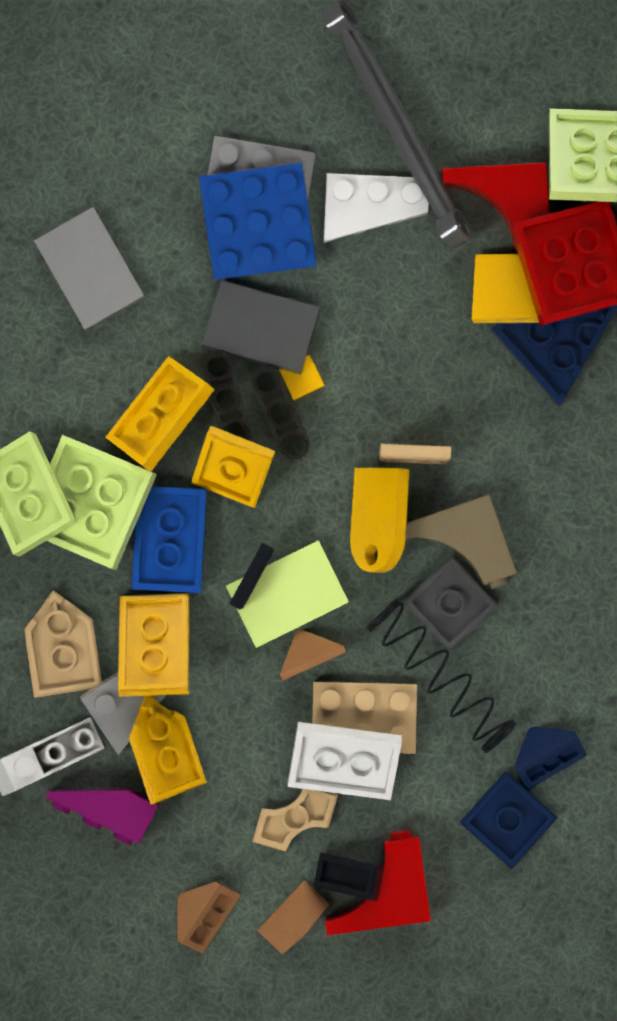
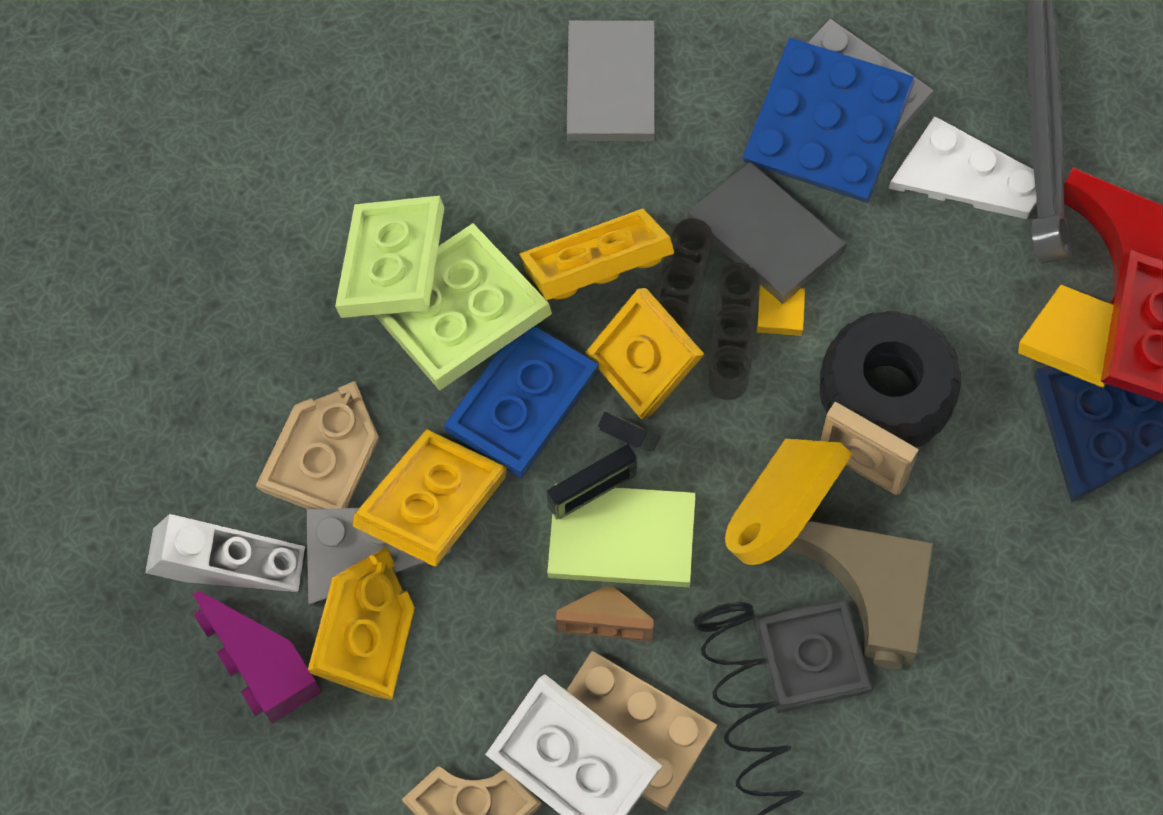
camera: 25 degrees right, 20 degrees down
(256, 529) = (628, 432): none -> black tile
(412, 361) = (904, 344): none -> black tyre

